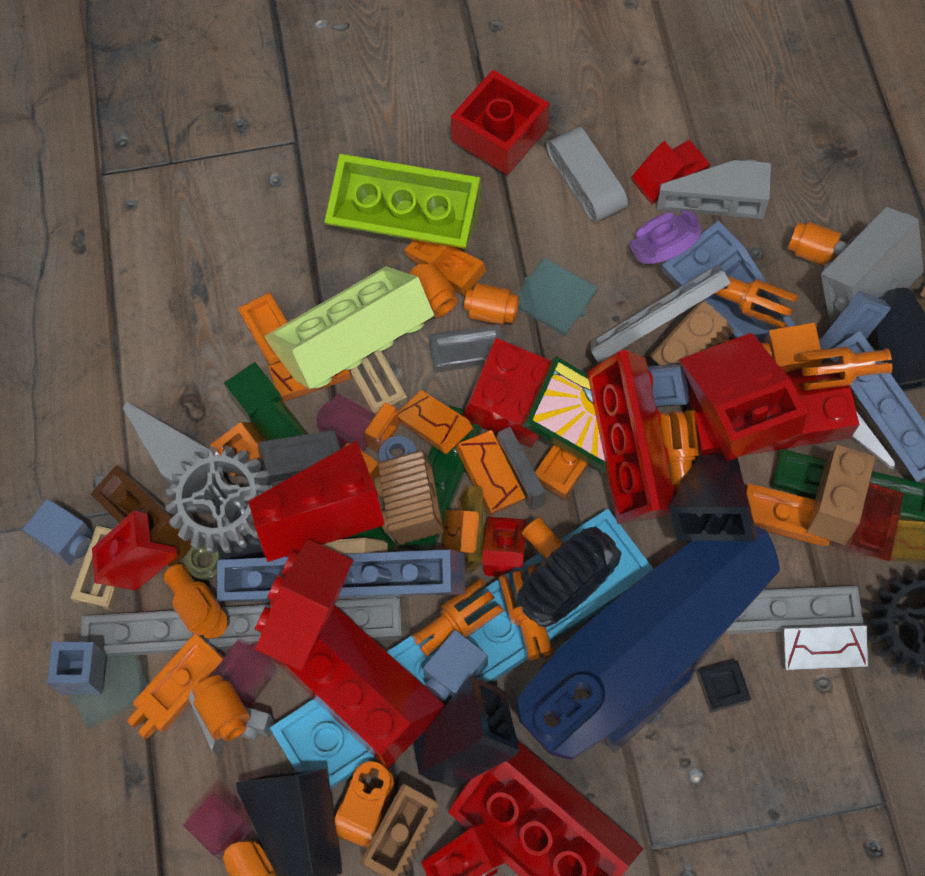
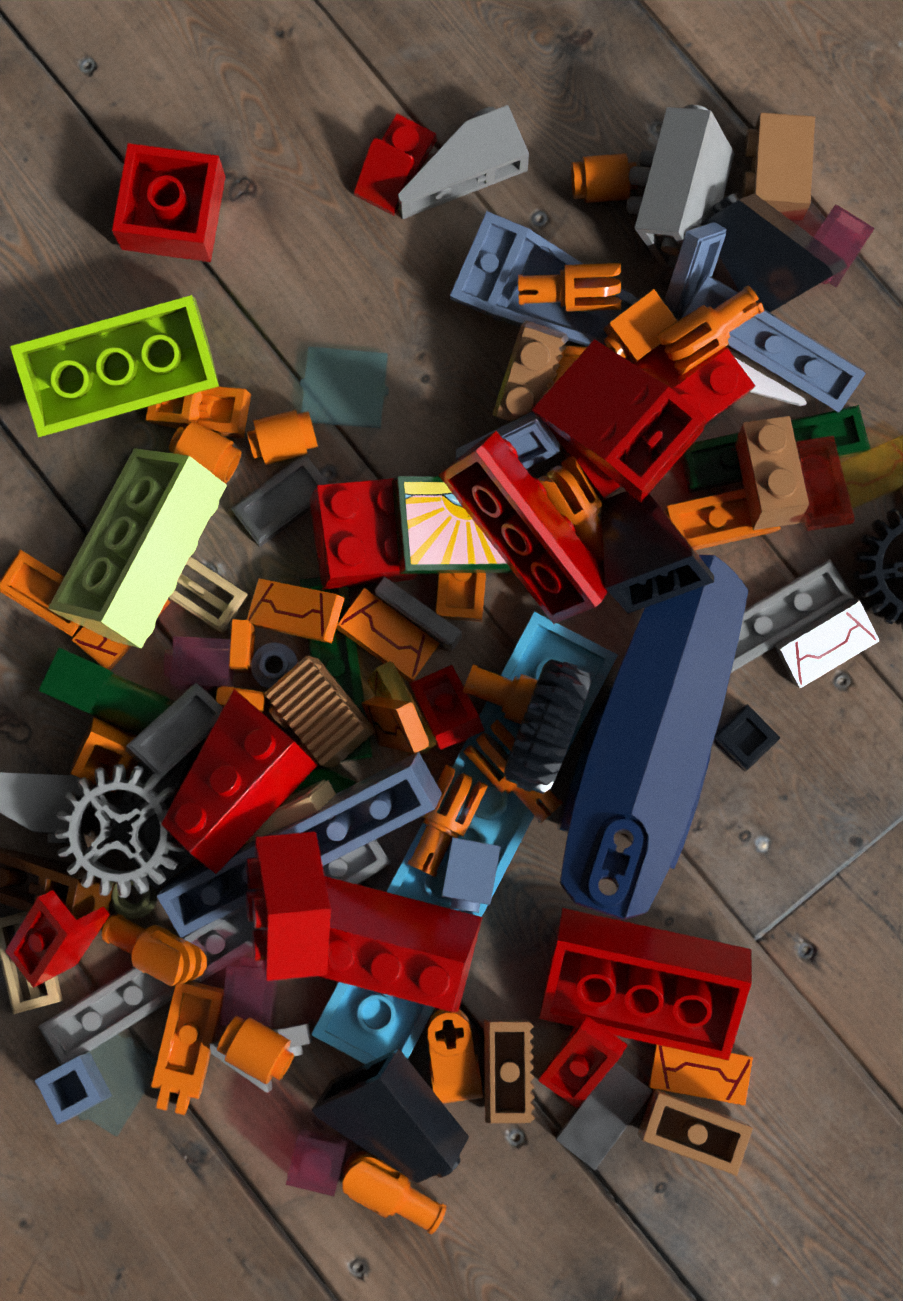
camera: 30 degrees left, 15 degrees up
(467, 735) = (525, 938): black slope -> none
(587, 174) = (303, 217): light grey beam -> none
(659, 312) = (478, 359): light grey tile -> none
(666, 237) = (435, 256): medium lavender plate -> none

